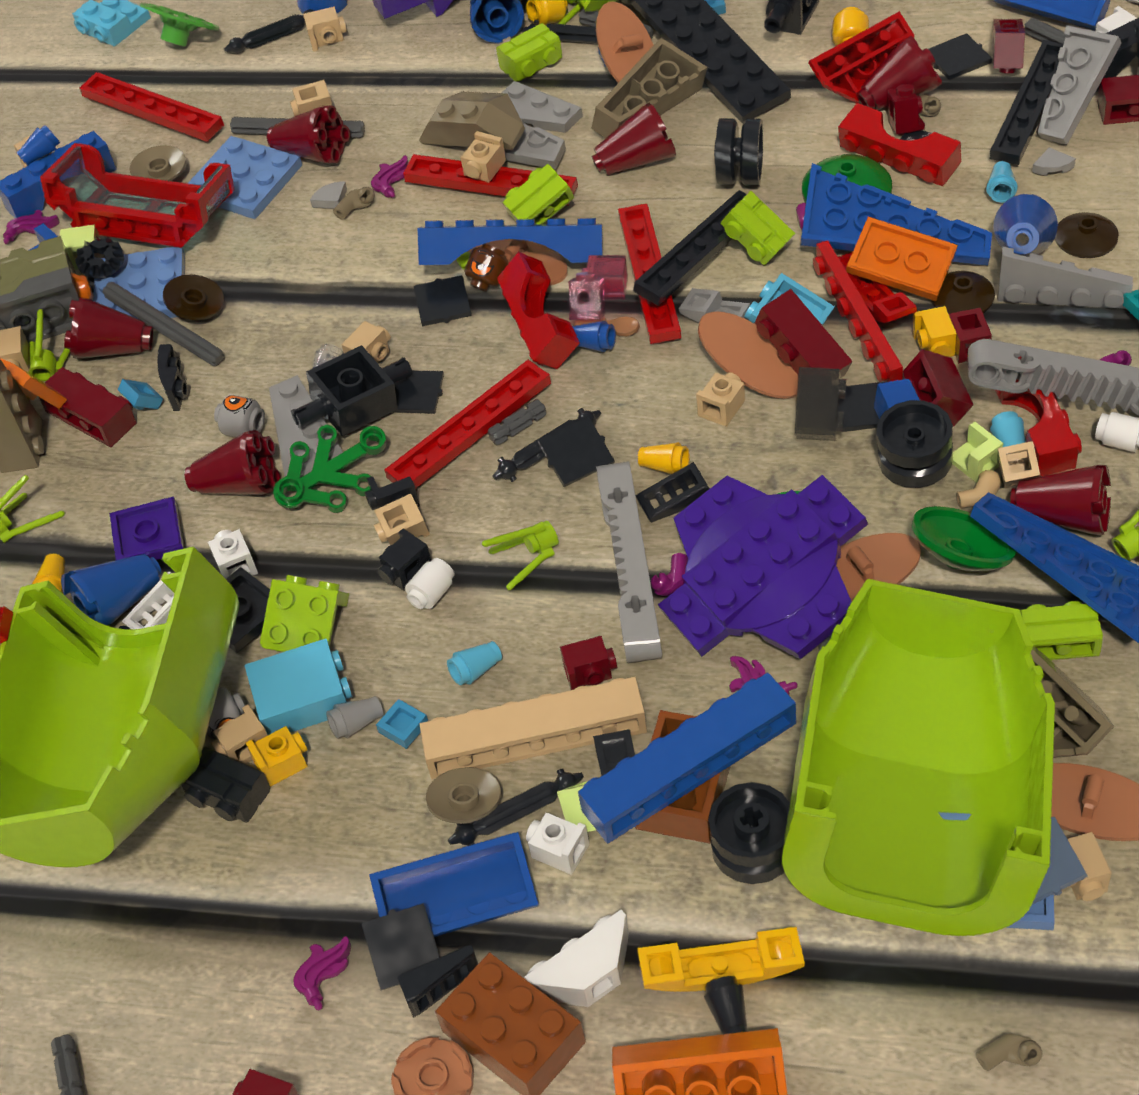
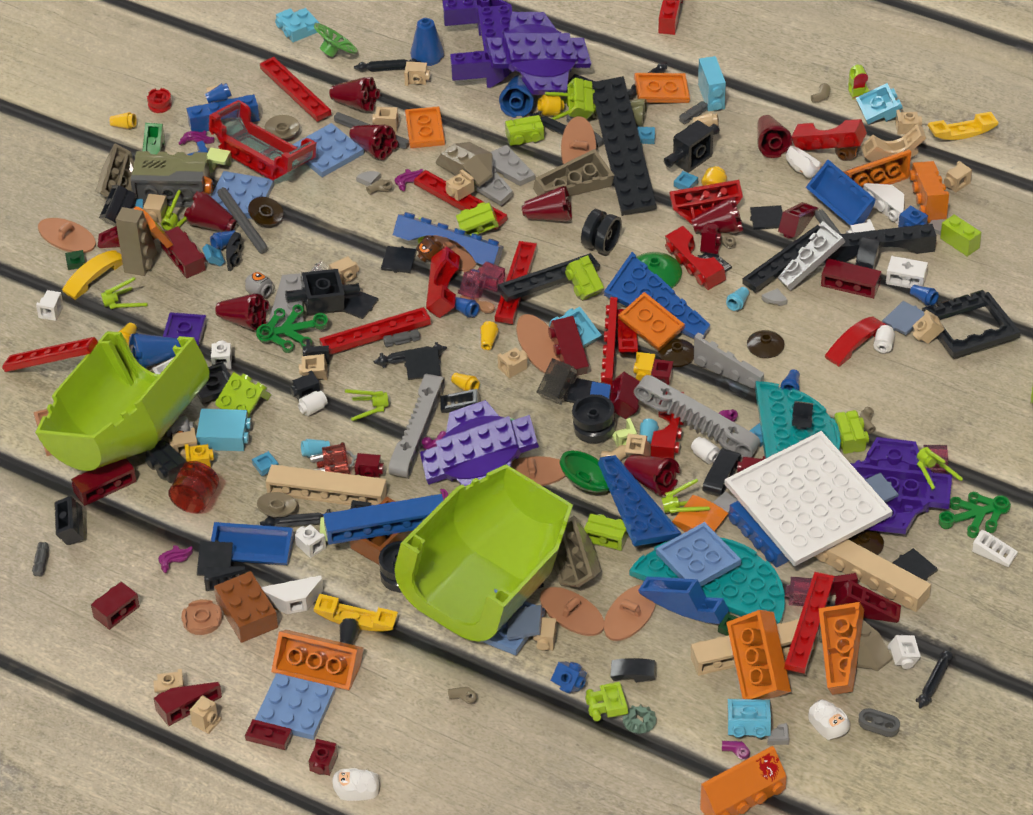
camera: 15 degrees right, 5 degrees down
(93, 974) = (69, 520): none -> black brick
(97, 267) = (219, 175): black gear -> none
(112, 883) = (103, 481): none -> dark red brick
(142, 364) = (220, 239): none -> blue cone
(249, 81) = (356, 93): none -> dark red cone
(300, 819) = (193, 487): none -> clear red wheel
(352, 716) = (243, 452): light grey cone -> none
(375, 97) = (424, 127): none -> orange tile
(521, 673) = (334, 459): none -> clear red piece
(655, 367) = (488, 334): none -> yellow cone
(704, 301) = (537, 309): light grey slope -> none
(809, 45) = (685, 181): none -> dark azure plate
(1025, 215) = (725, 327): blue cone -> none

